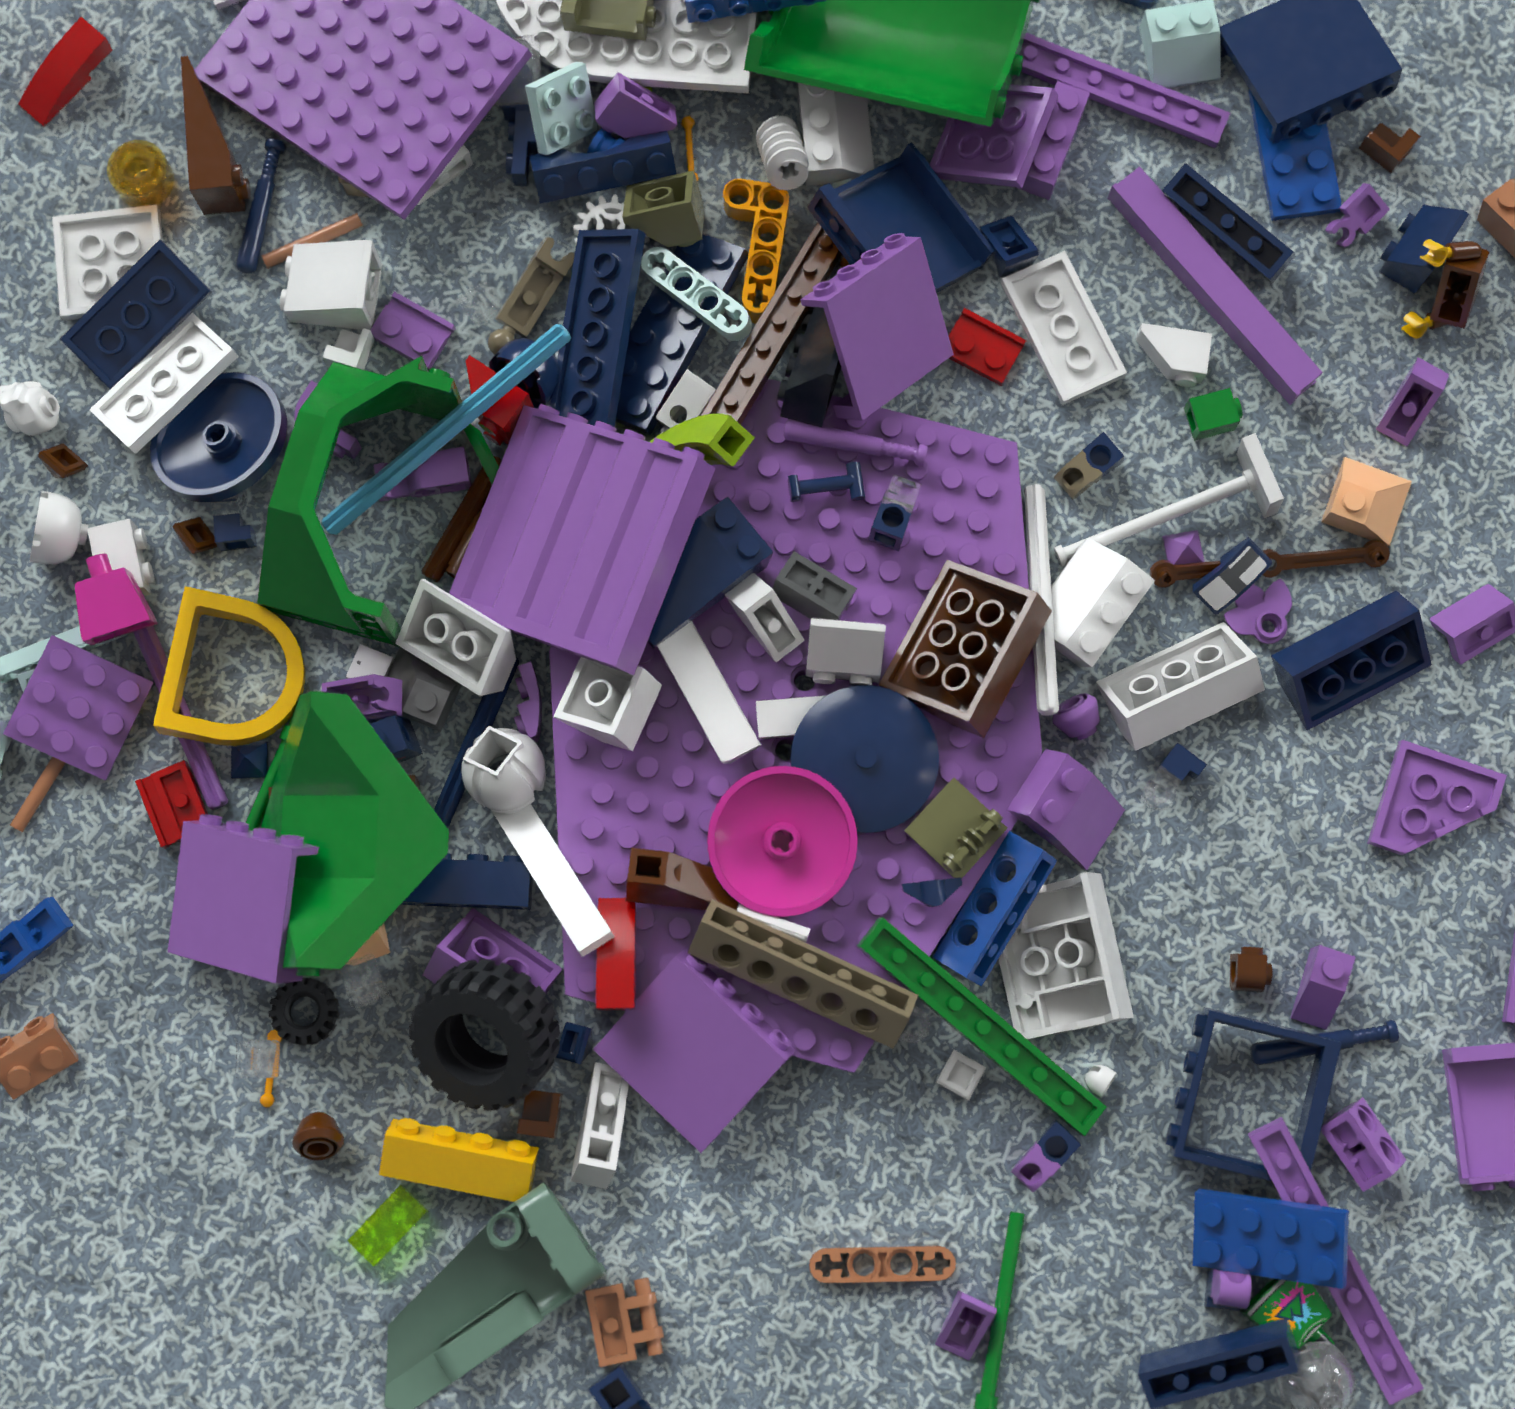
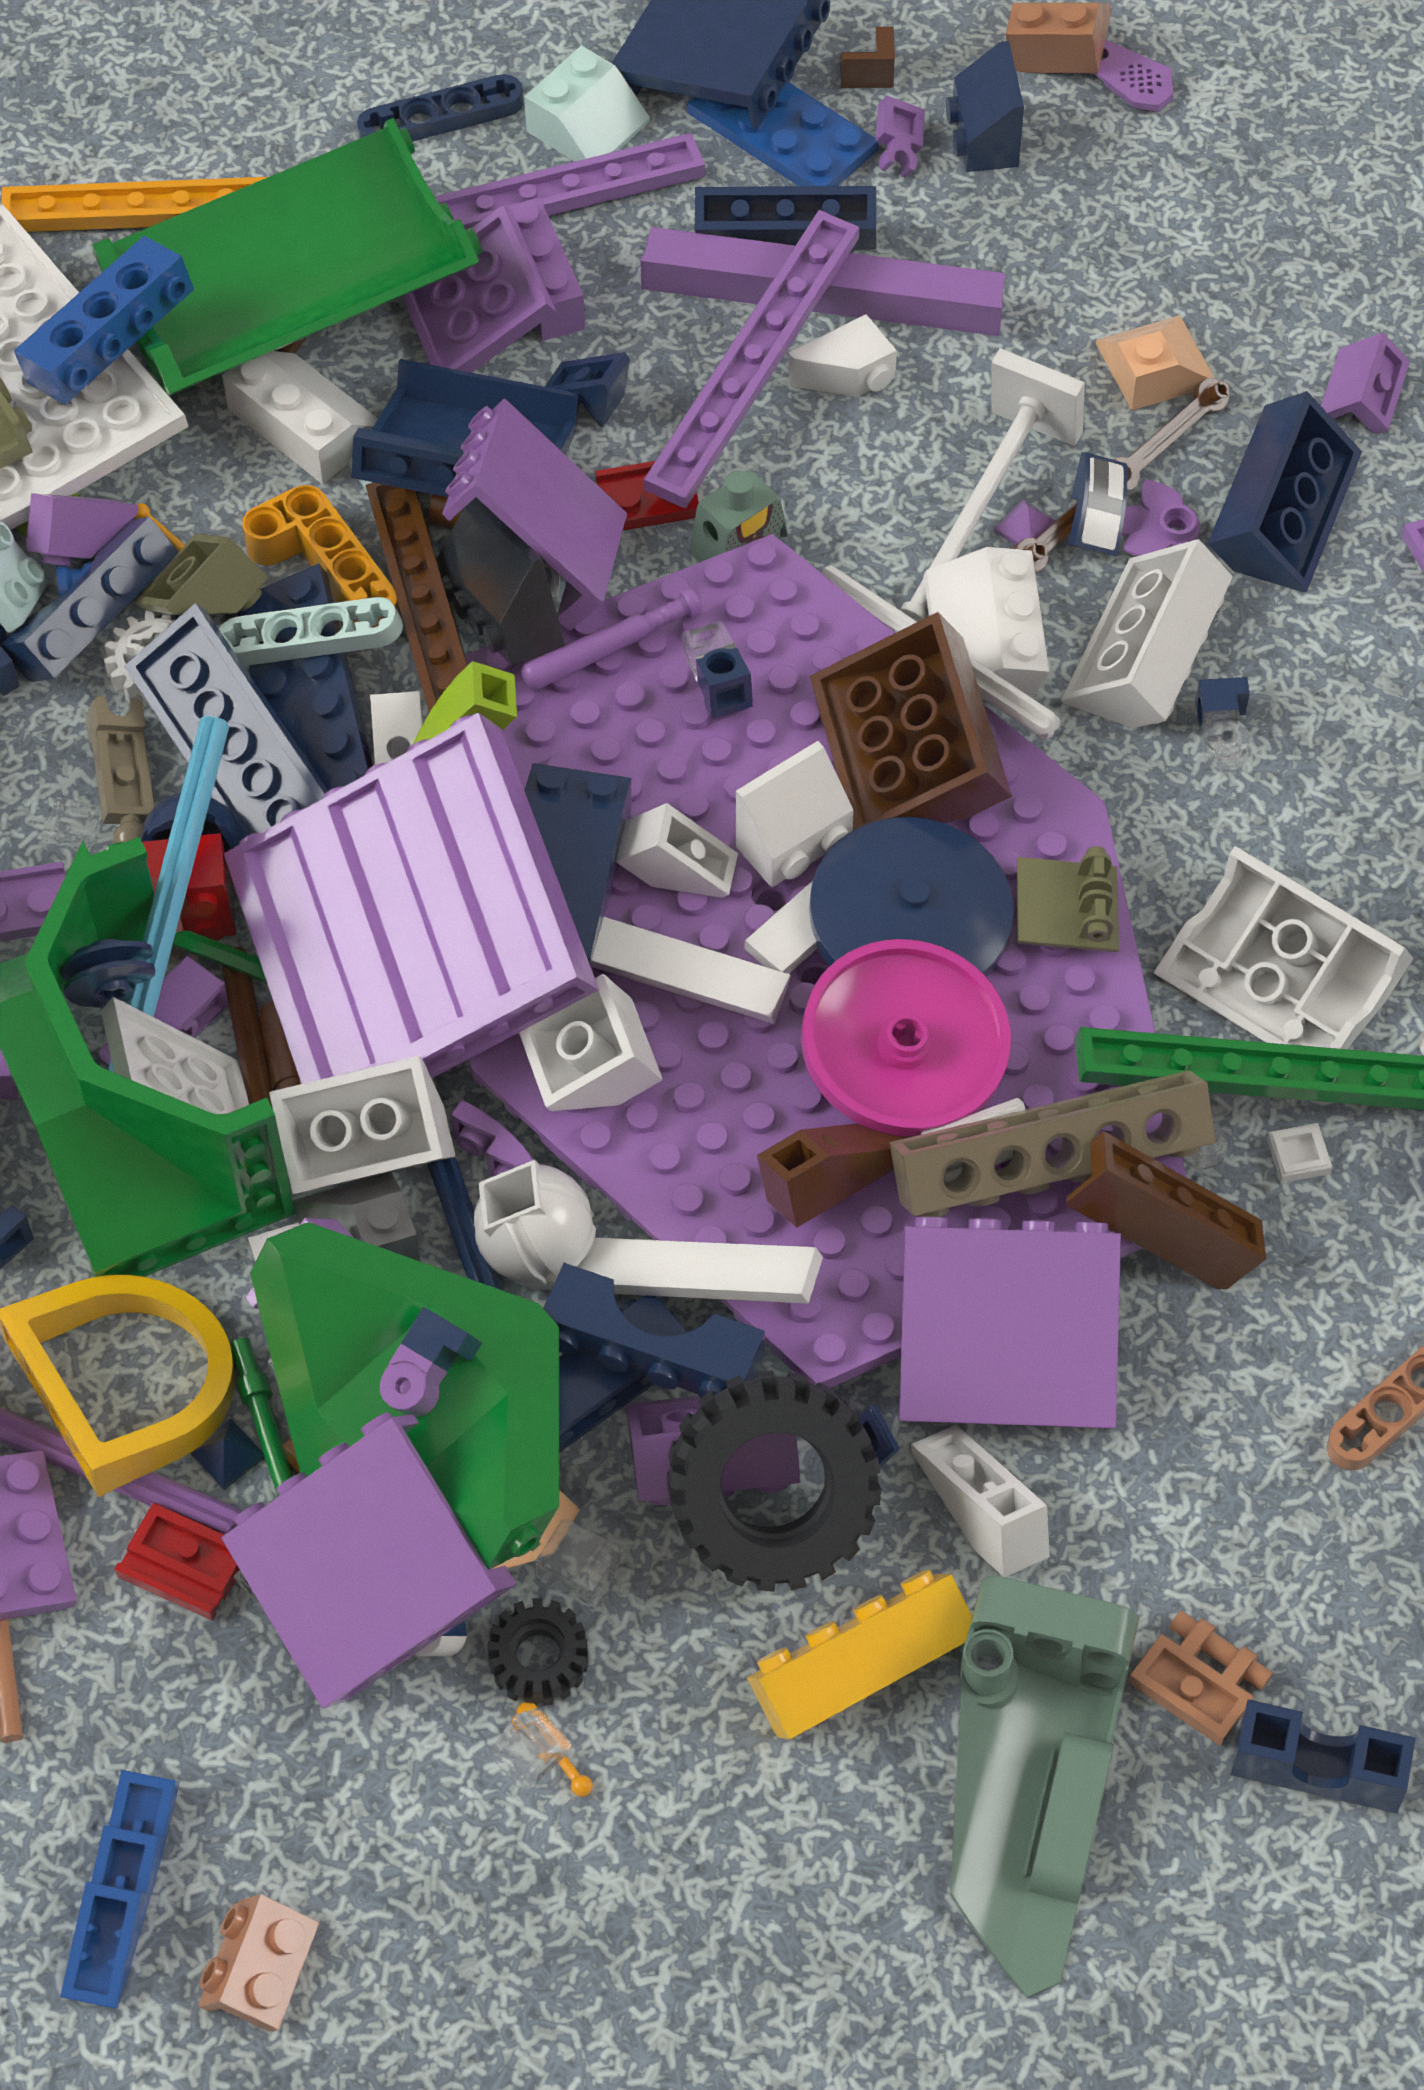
camera: 40 degrees left, 20 degrees down
(318, 1137) = (681, 1766): reddish brown cone -> none
(337, 826) = (422, 1362): none -> leg
(383, 530) = (171, 1060): none -> white plate
(387, 1225) = (847, 1796): clear neon green plate -> none
(391, 436) = (106, 971): none -> dark blue piece
(477, 854) = (695, 1361): none -> dark blue arch
(541, 1114) = (906, 1541): reddish brown panel -> none
(617, 956) = (852, 1293): red slope -> none
(782, 153) = (275, 454): white piece -> none
(812, 589) = (703, 789): dark grey hinge -> none
(837, 1062) = (1168, 1214): none -> reddish brown panel
(851, 481) = (641, 676): dark blue piece -> none
(932, 892) = (1102, 975): dark blue piece -> none
(997, 927) = (1173, 885): blue brick -> none
(1009, 415) = (736, 516): none -> sand green torso
(1063, 327) = (665, 391): white plate -> none
(1067, 807) = (1150, 809): medium lavender slope -> none
(1078, 716) = (1078, 736): medium lavender cone -> none
(1089, 466) = (862, 513): leg -> none
(1114, 311) = (751, 359): none -> medium lavender plate
(1213, 414) = (934, 387): green brick -> none
(1413, 401) = (1113, 246): medium lavender slope -> none
(1457, 286) = (1054, 117): reddish brown torso -> none

